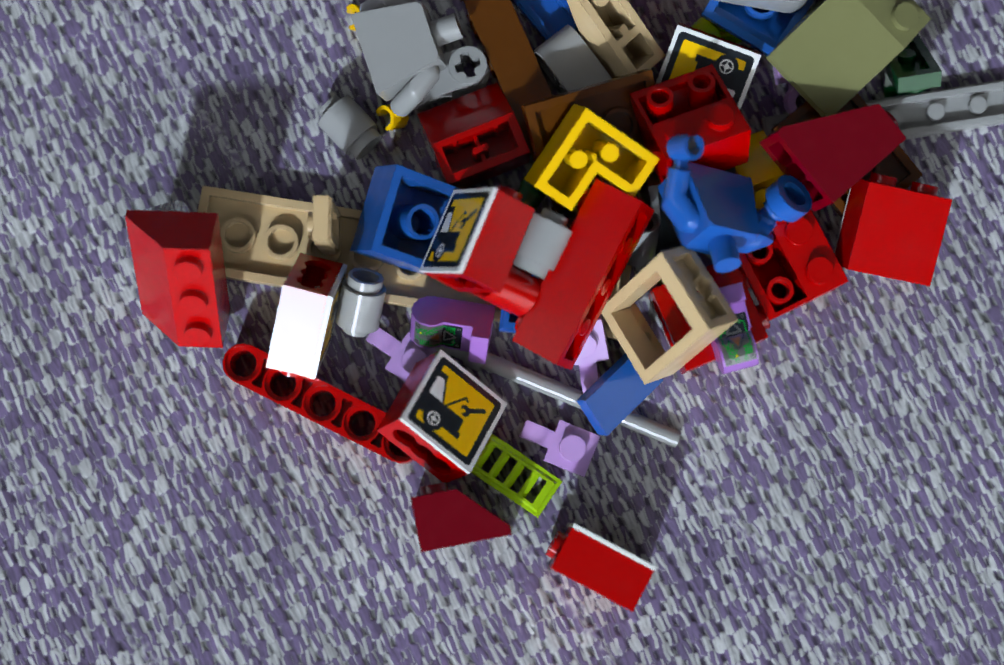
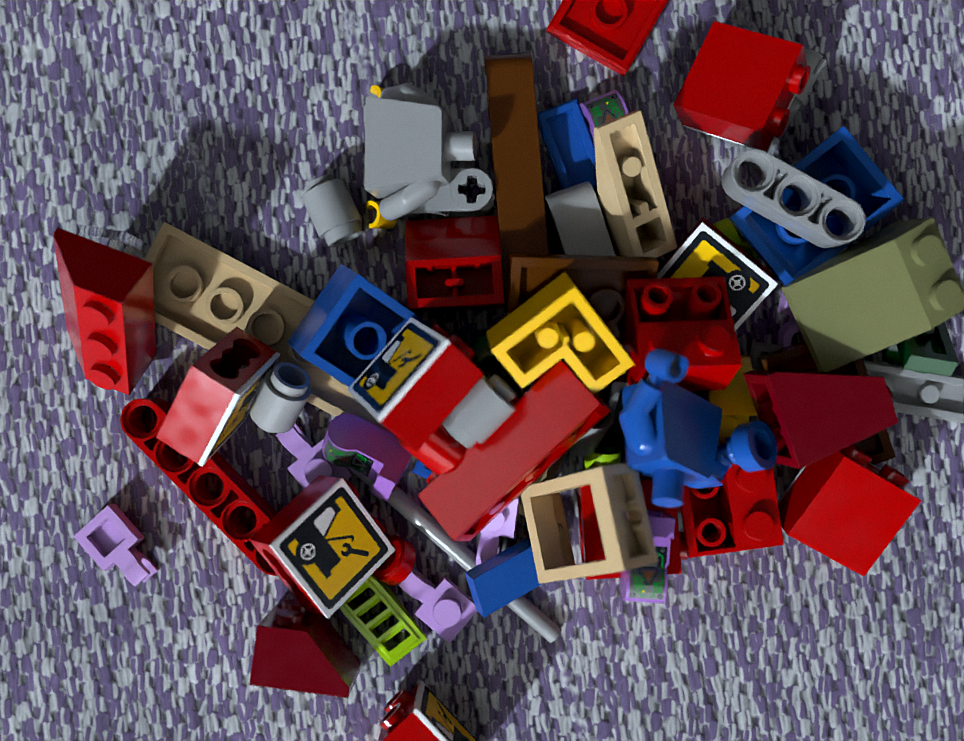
camera: 10 degrees right, 5 degrees up
(248, 487) = (112, 541): none -> lavender plate
(324, 224) = (266, 309): tan plate -> none
(512, 420) = (398, 564): none -> red tile

